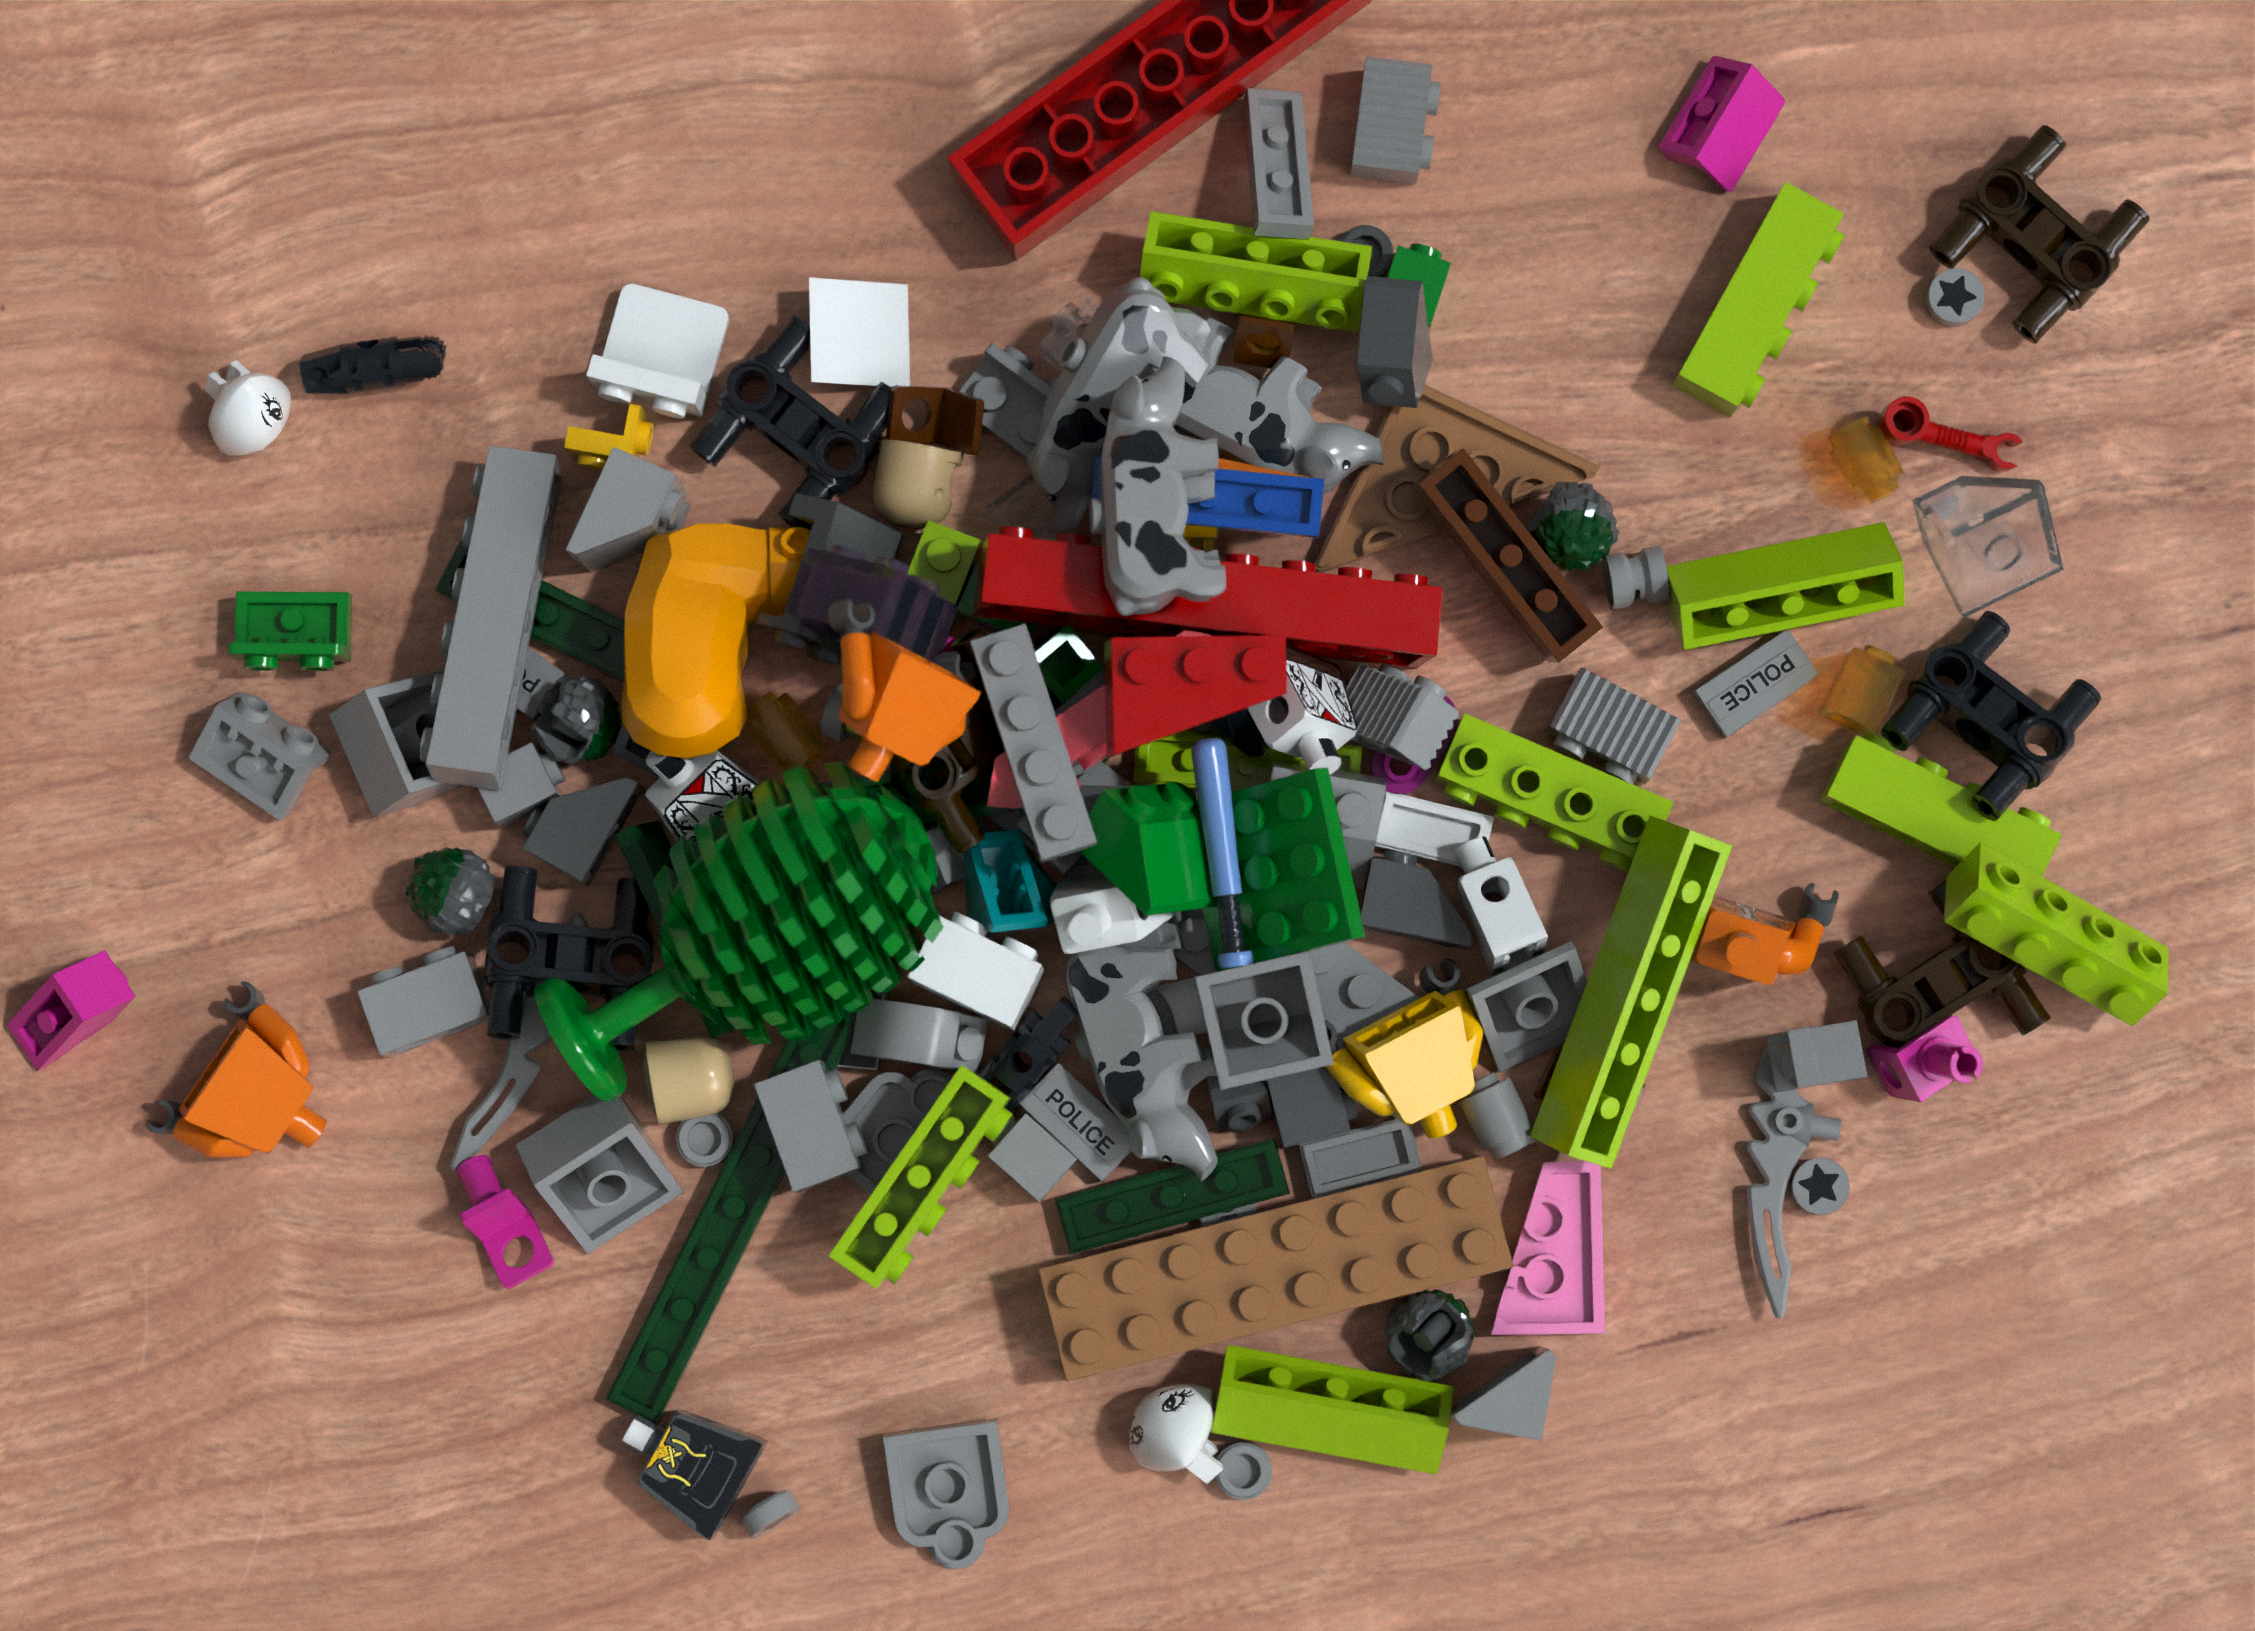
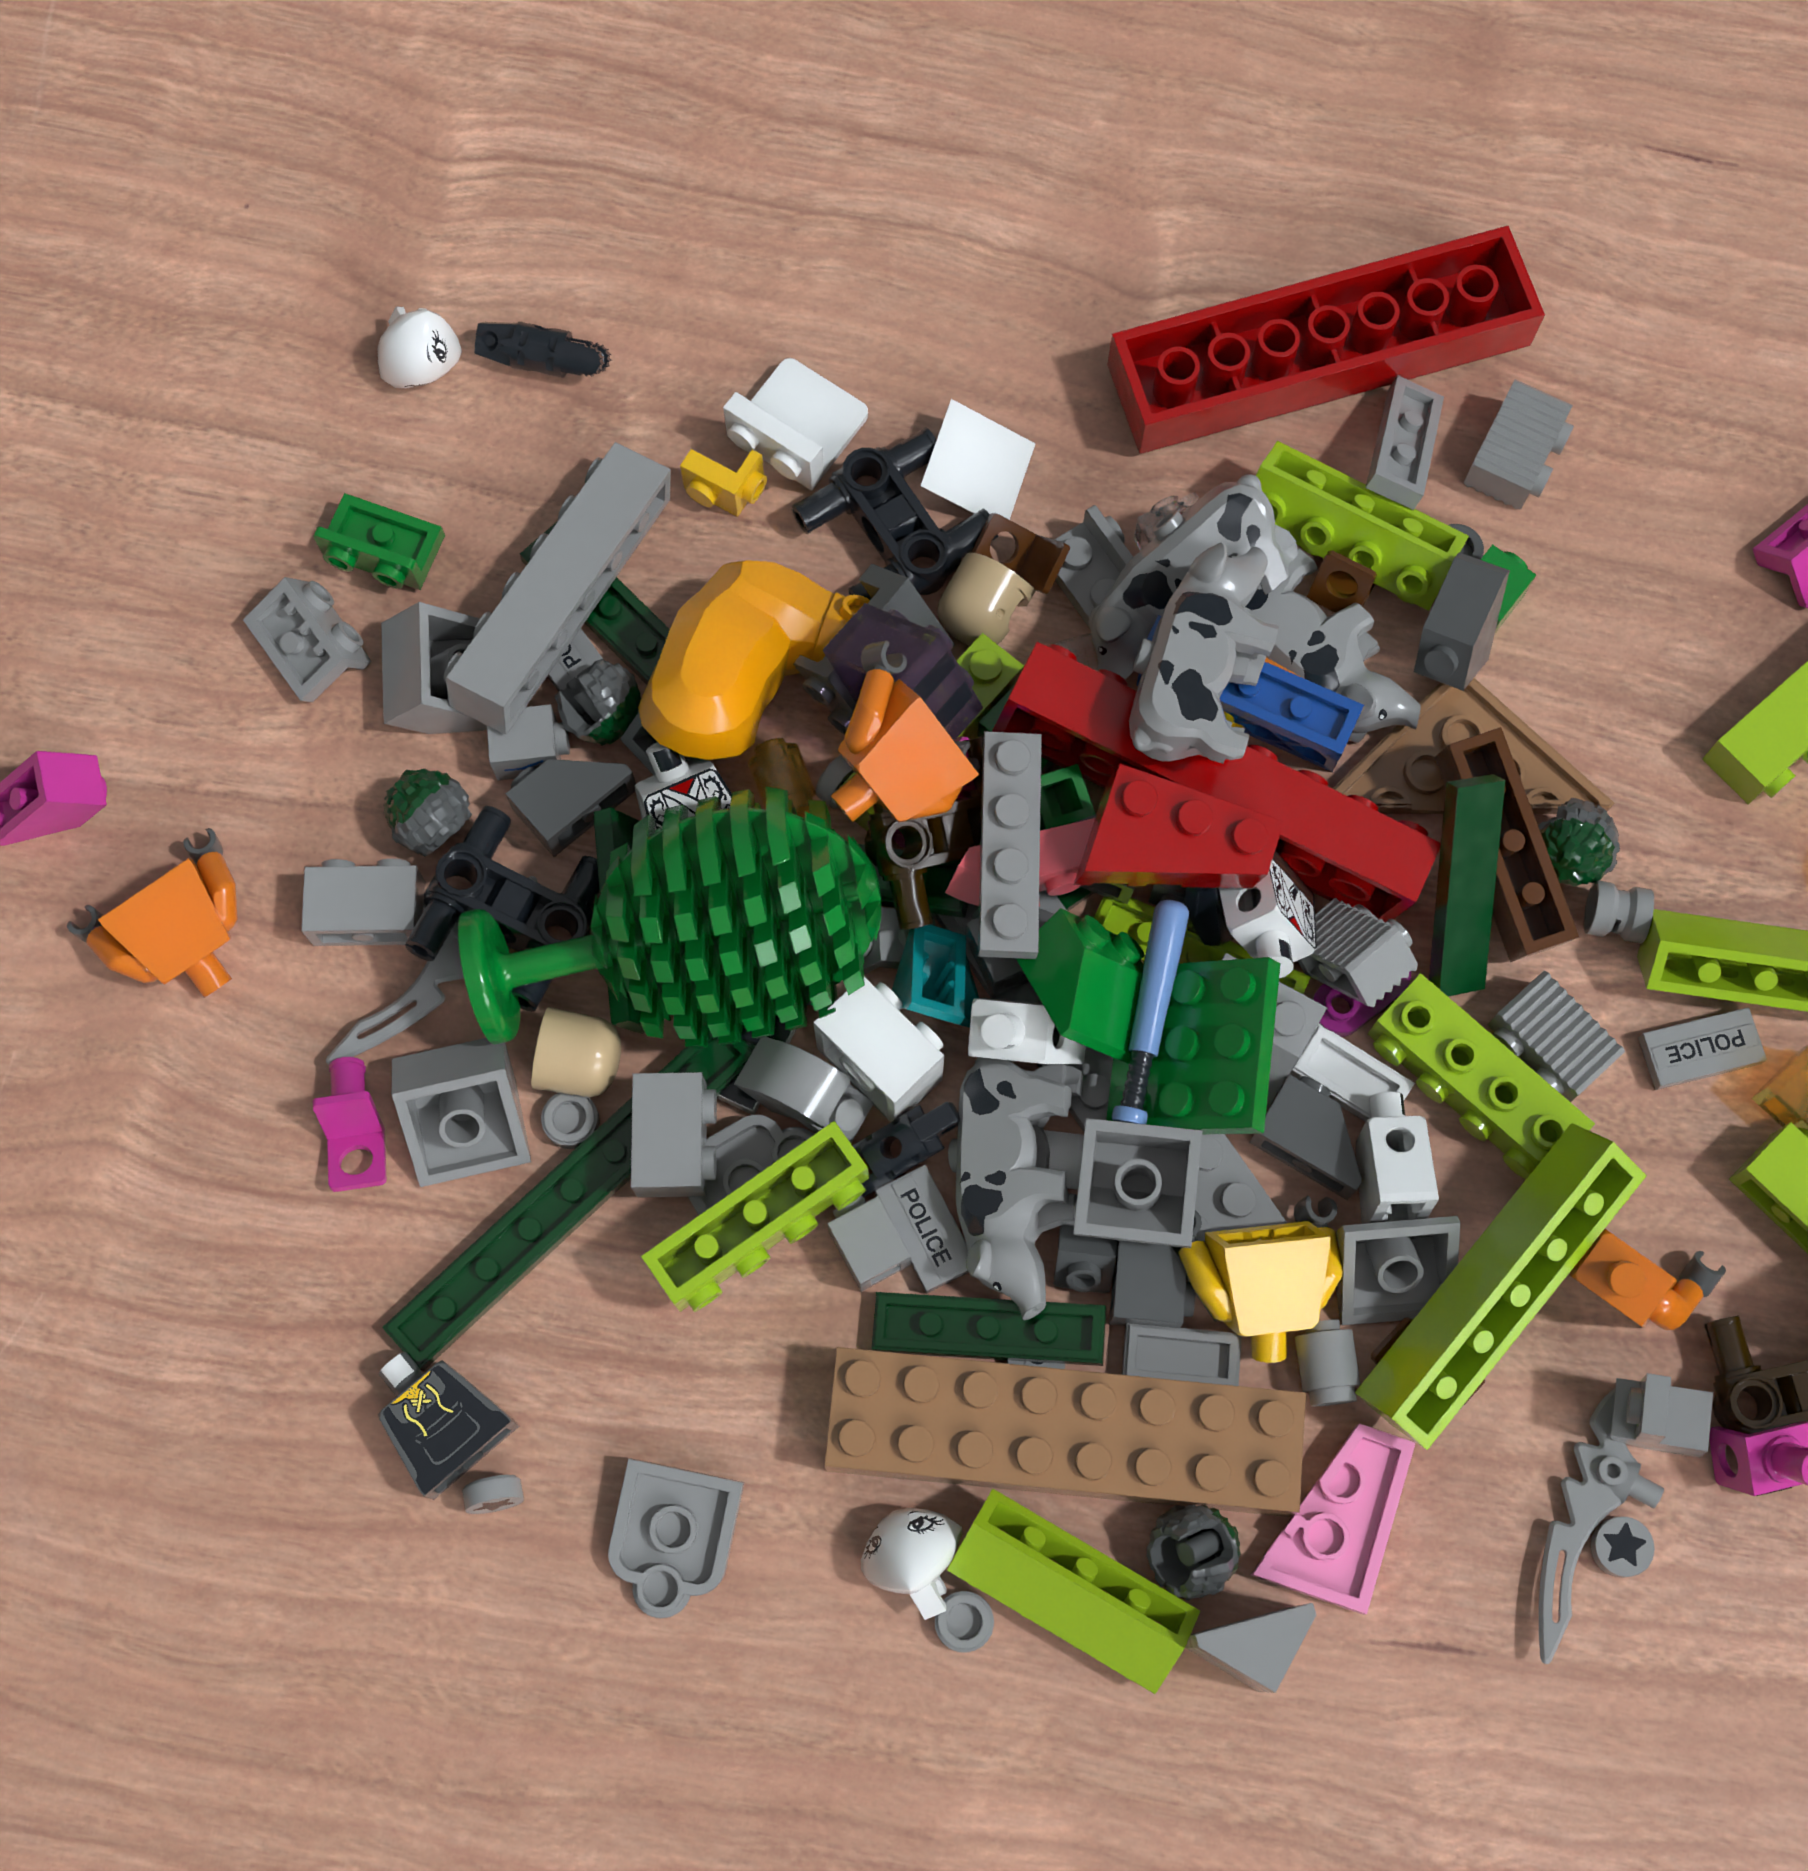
camera: 15 degrees right, 10 degrees down
(626, 510) = (712, 528): light grey slope -> none
(1479, 615) = (1466, 883): none -> dark green tile

